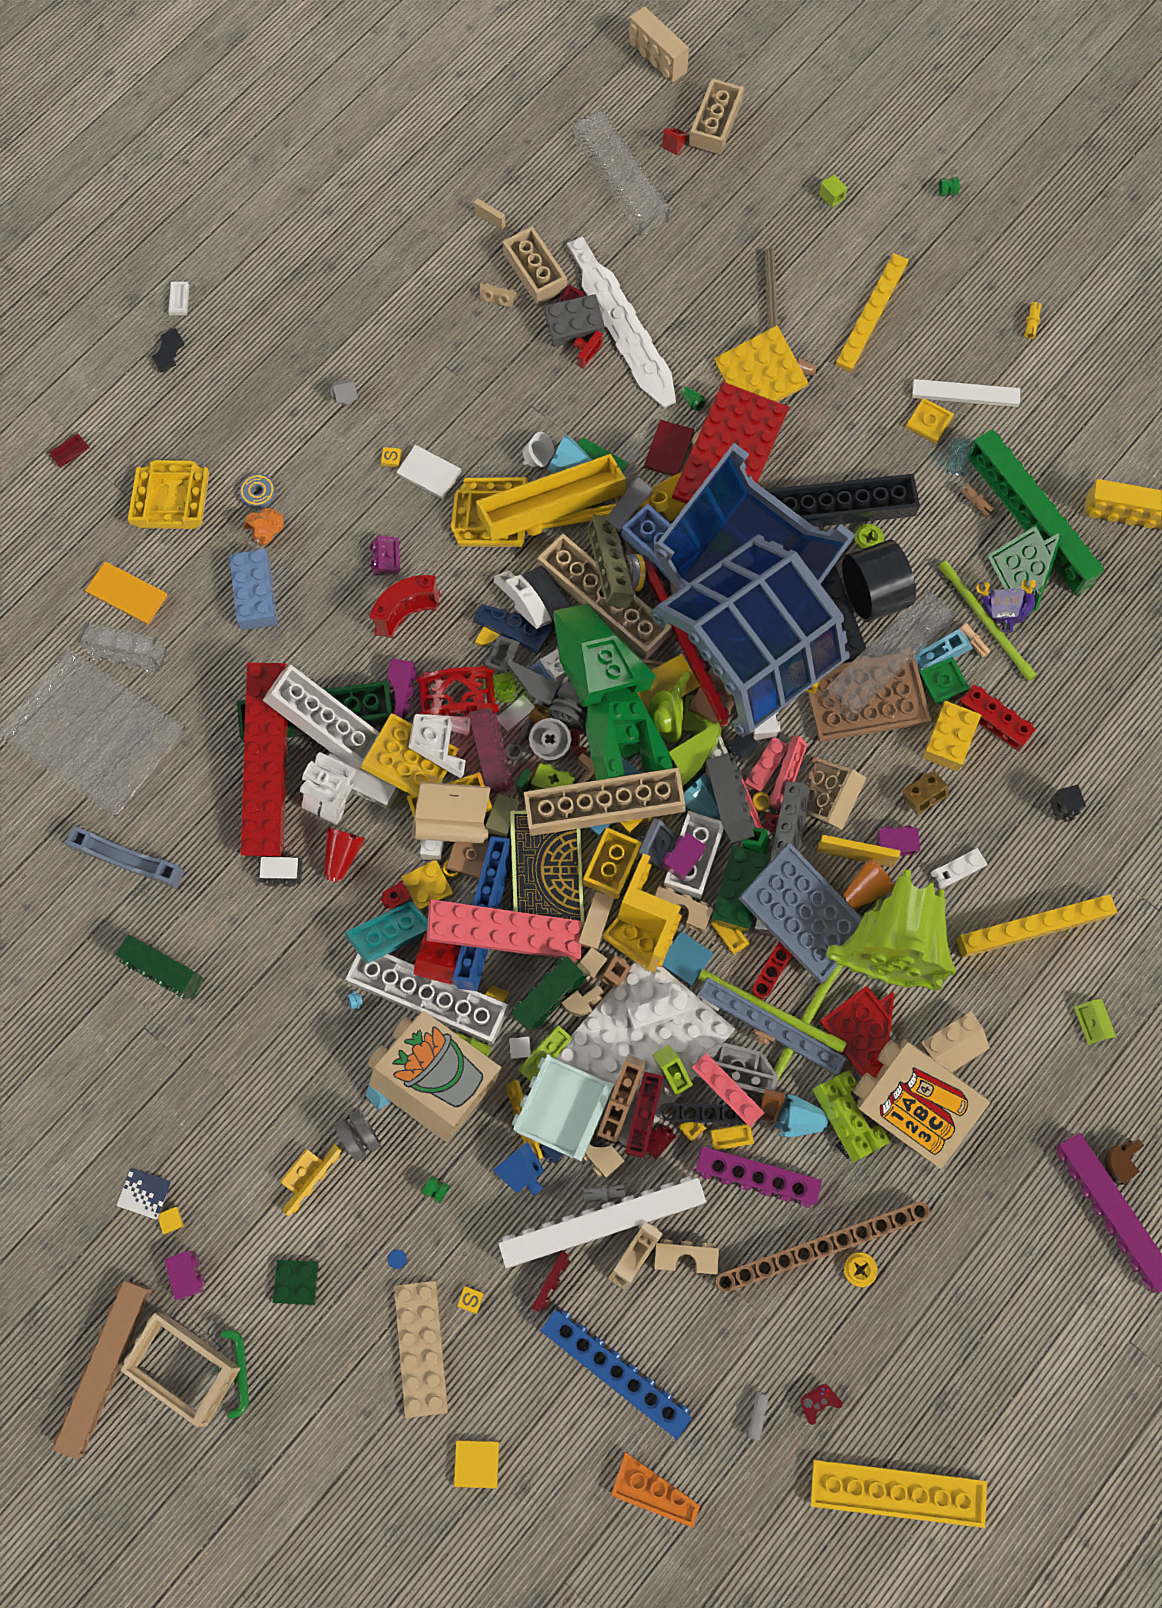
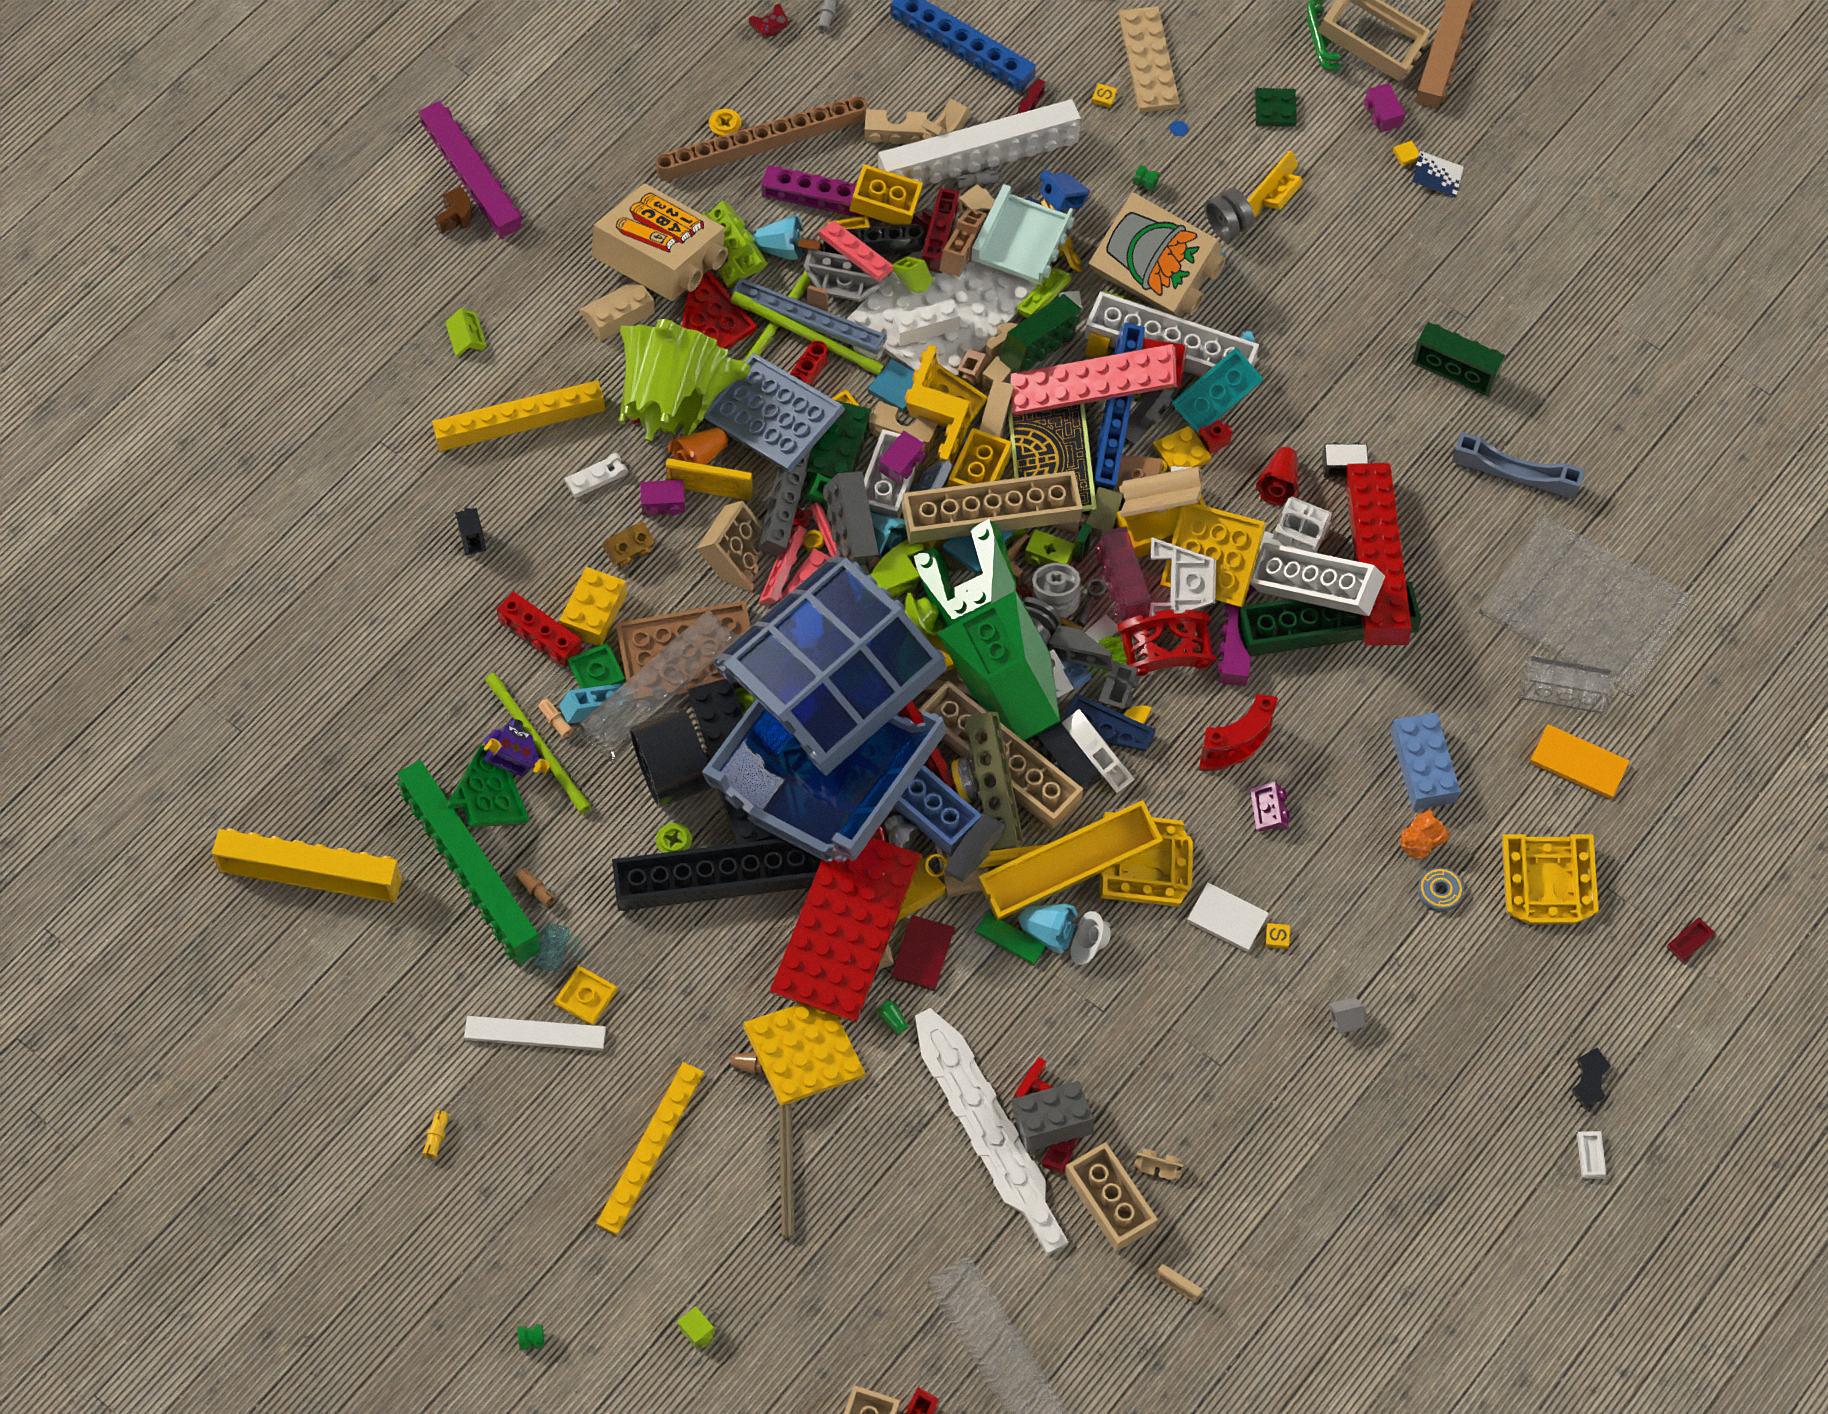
camera: 175 degrees right, 10 degrees down
(698, 1150) = (885, 196): none -> yellow brick

